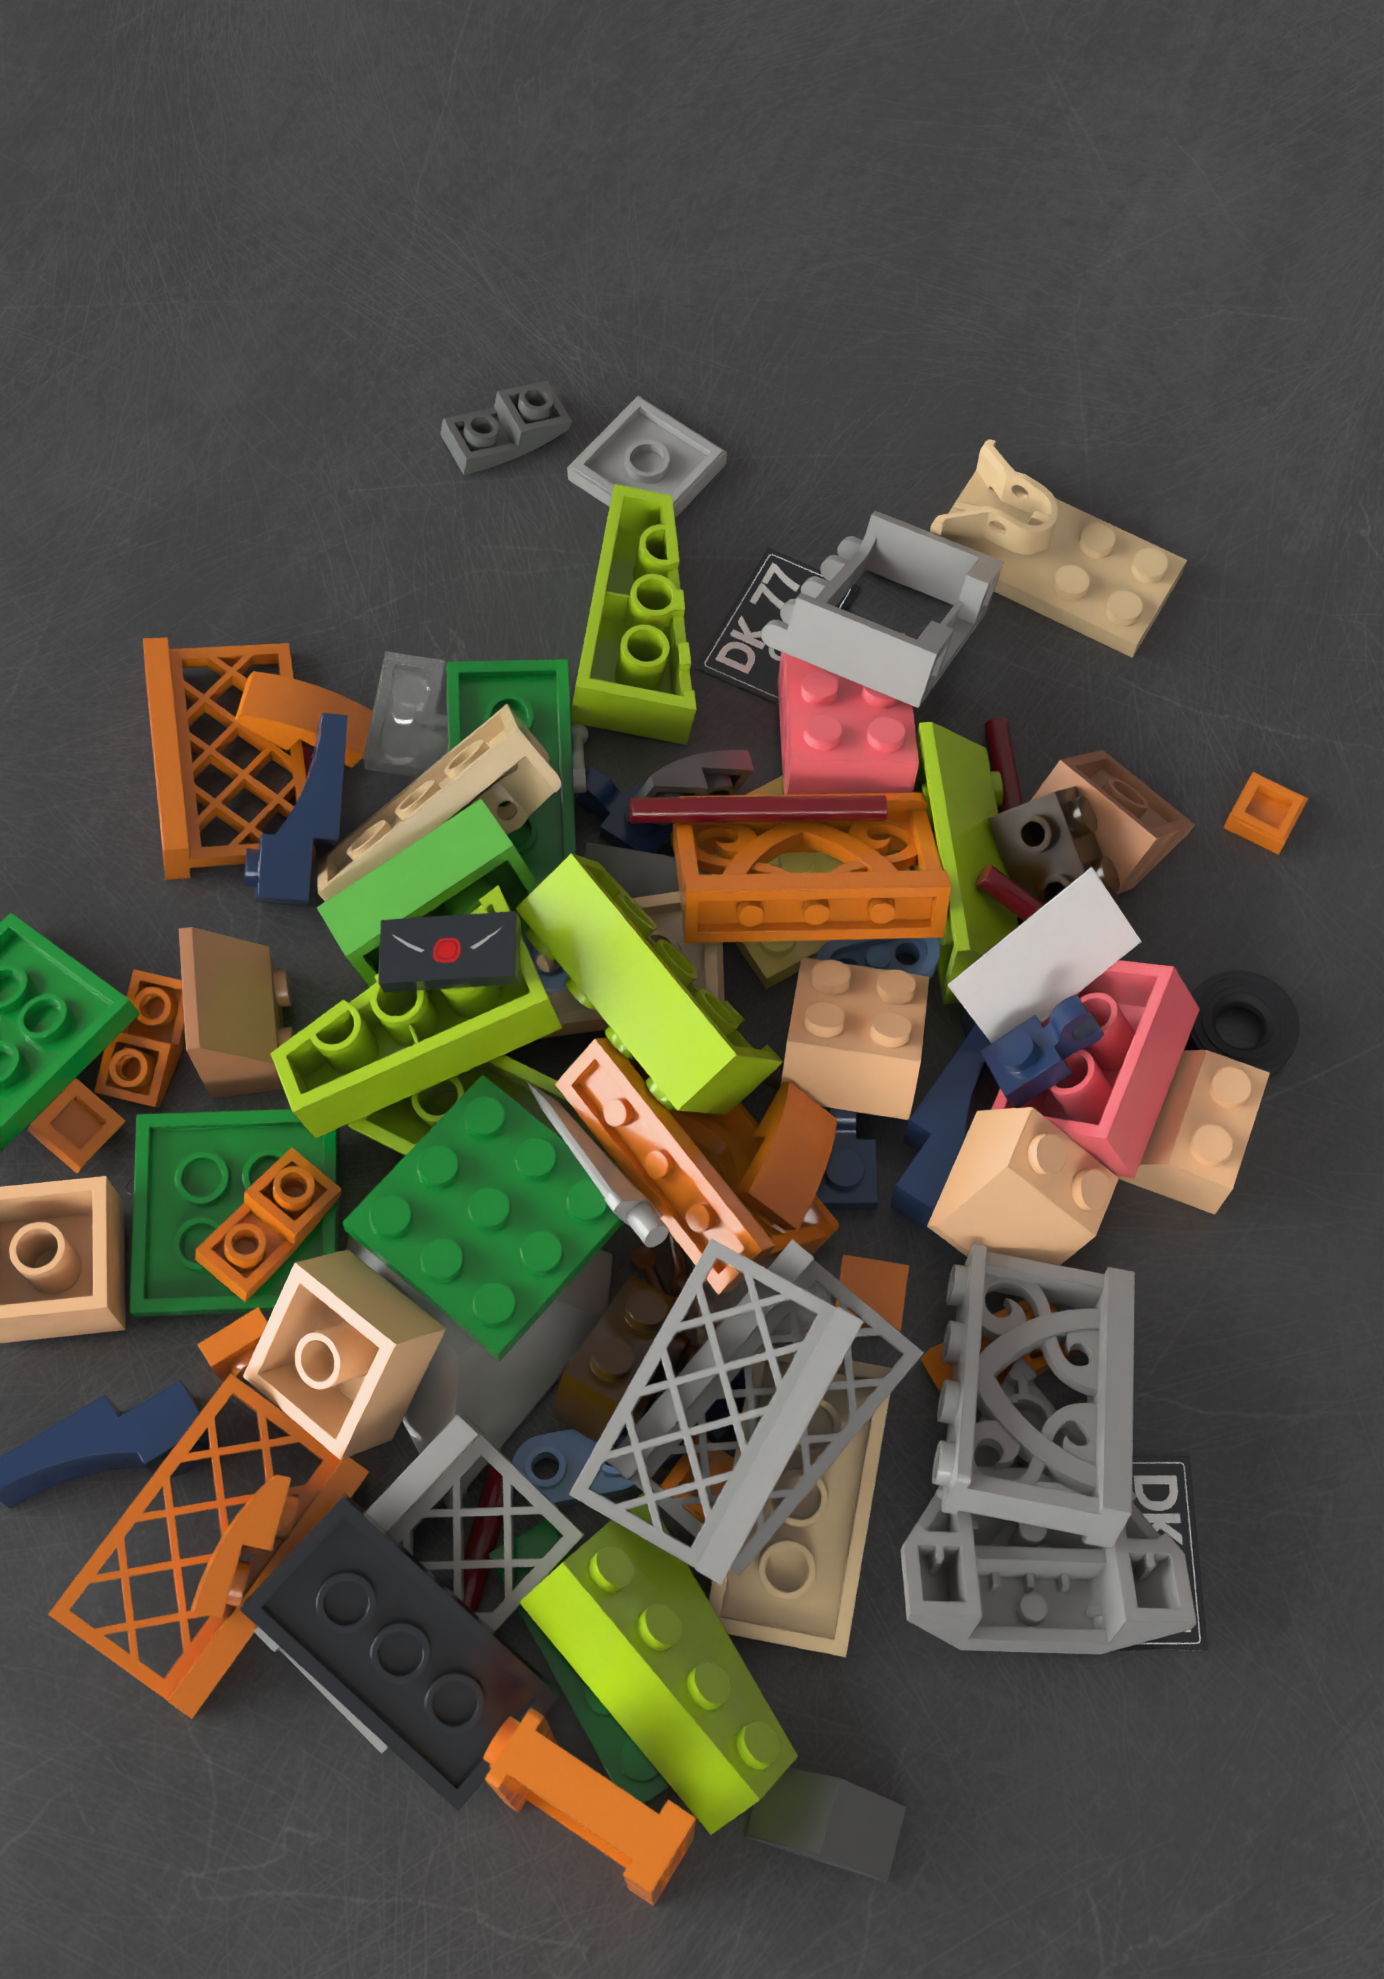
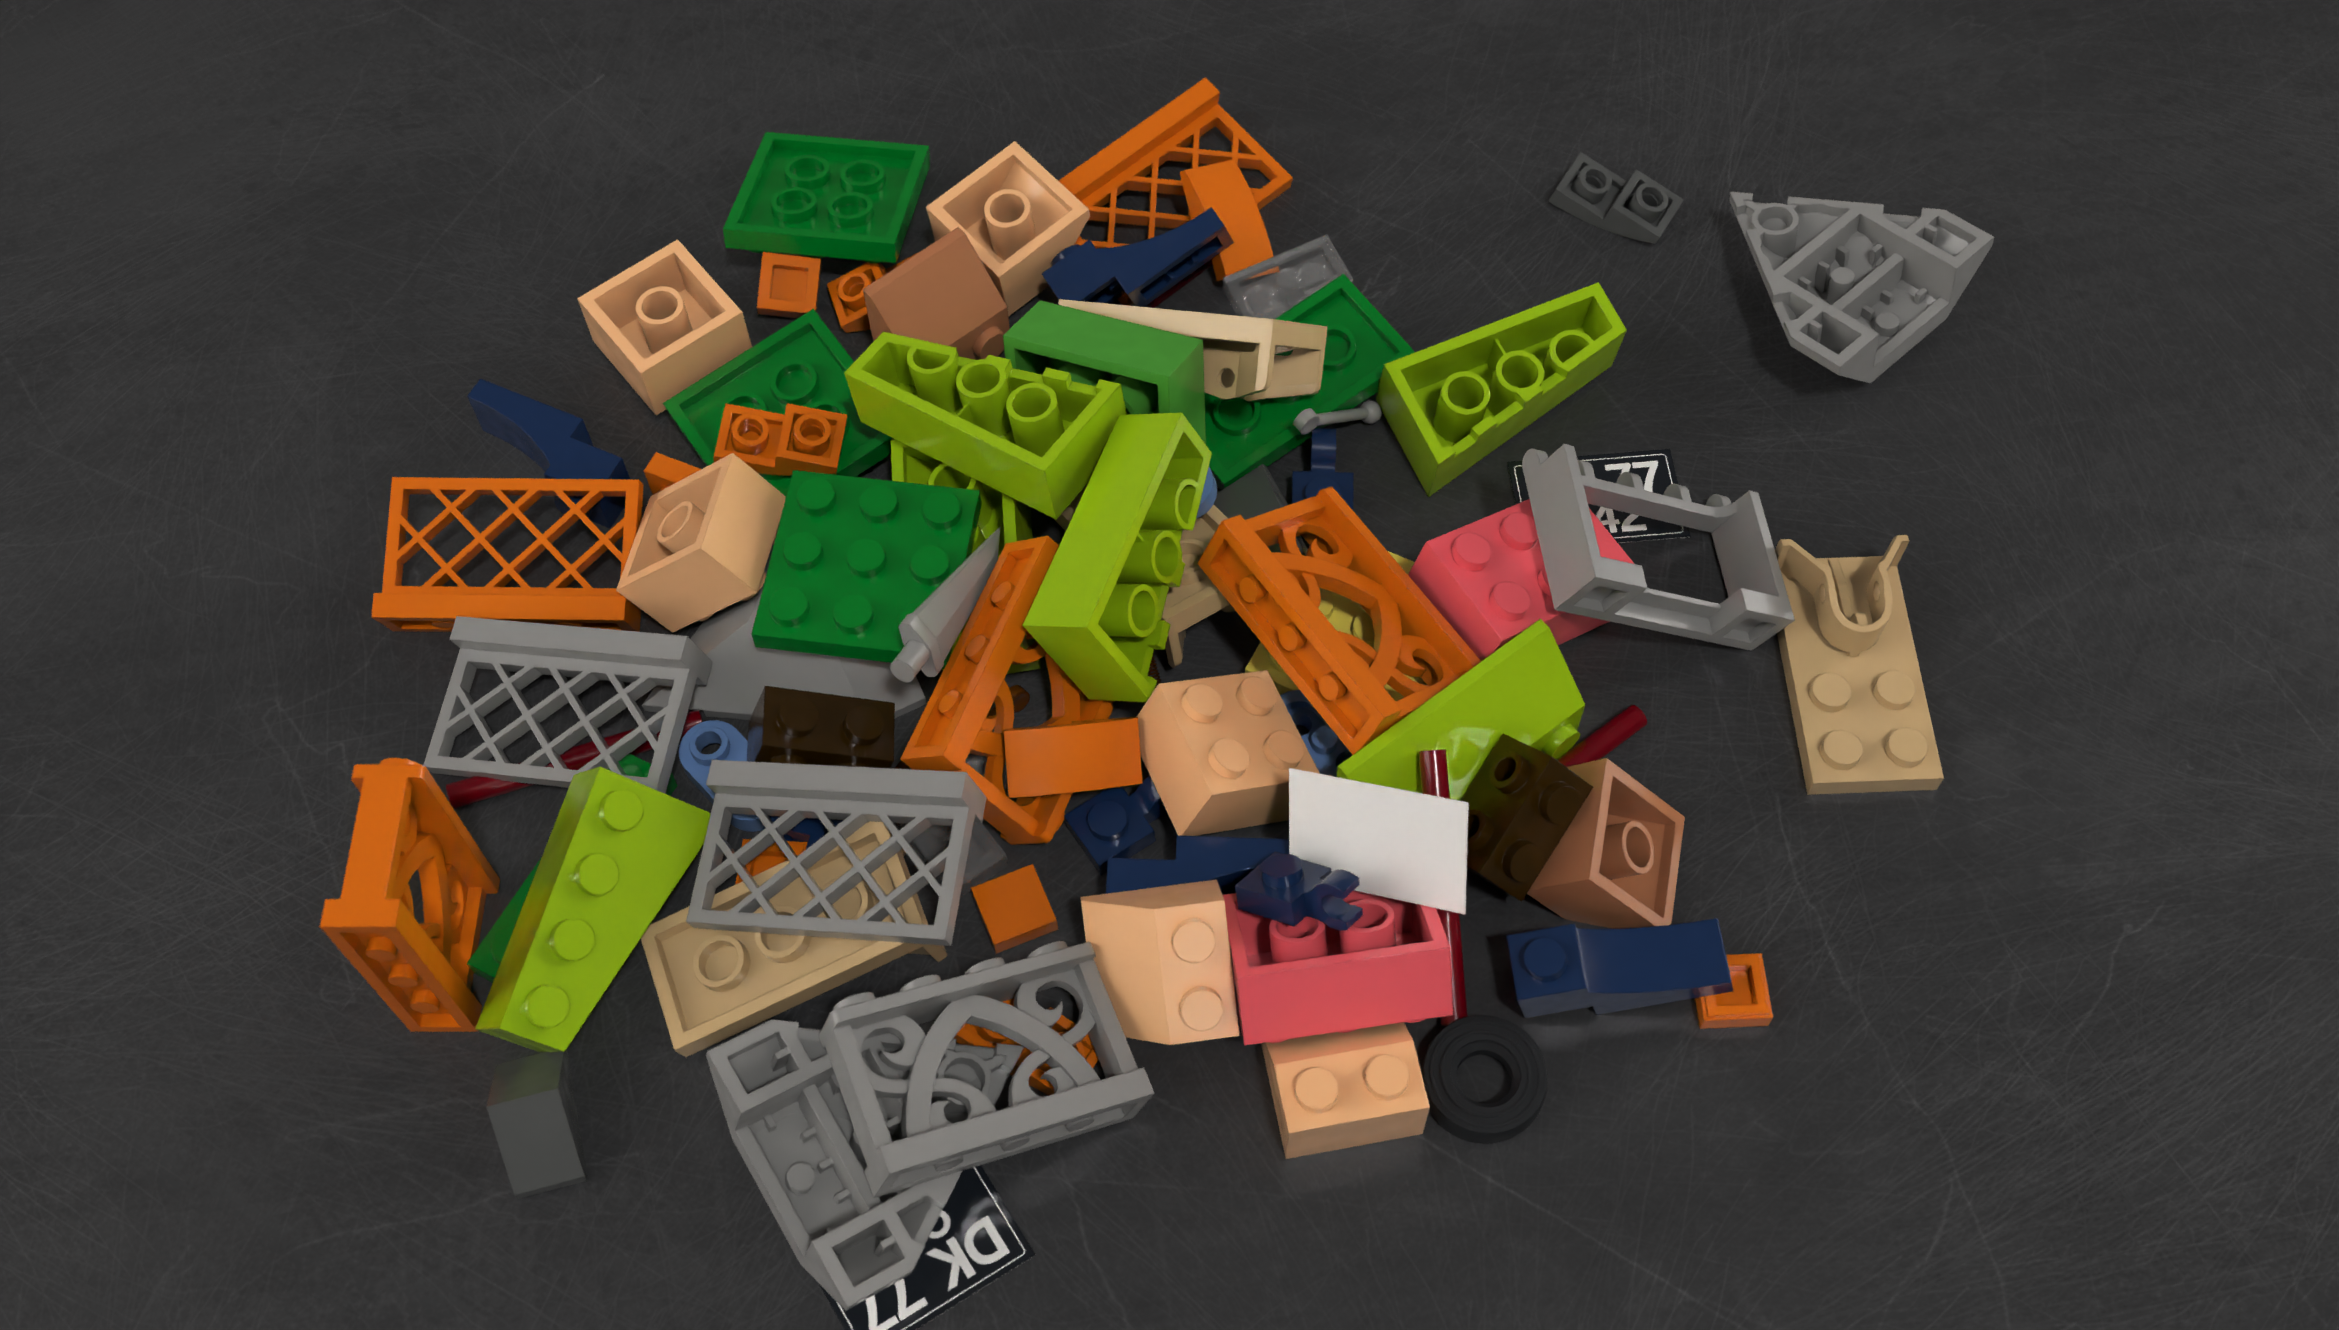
camera: 60 degrees right, 5 degrees down
(172, 880) = (1013, 219): none -> light nougat slope
(261, 1520) = (529, 563): orange slope -> none
(397, 1648) = (496, 706): black plate -> none
(449, 952) = (1036, 383): black tile -> none
(648, 453) = (1672, 316): light grey tile -> none
(699, 775) = (1388, 511): dark grey slope -> none
(720, 313) = (1859, 281): none -> light grey wedge
(758, 809) = (1365, 550): dark red bar -> none
(772, 1440) = (798, 866): light grey fence -> none
(1212, 872) = (1617, 967): none -> dark blue slope

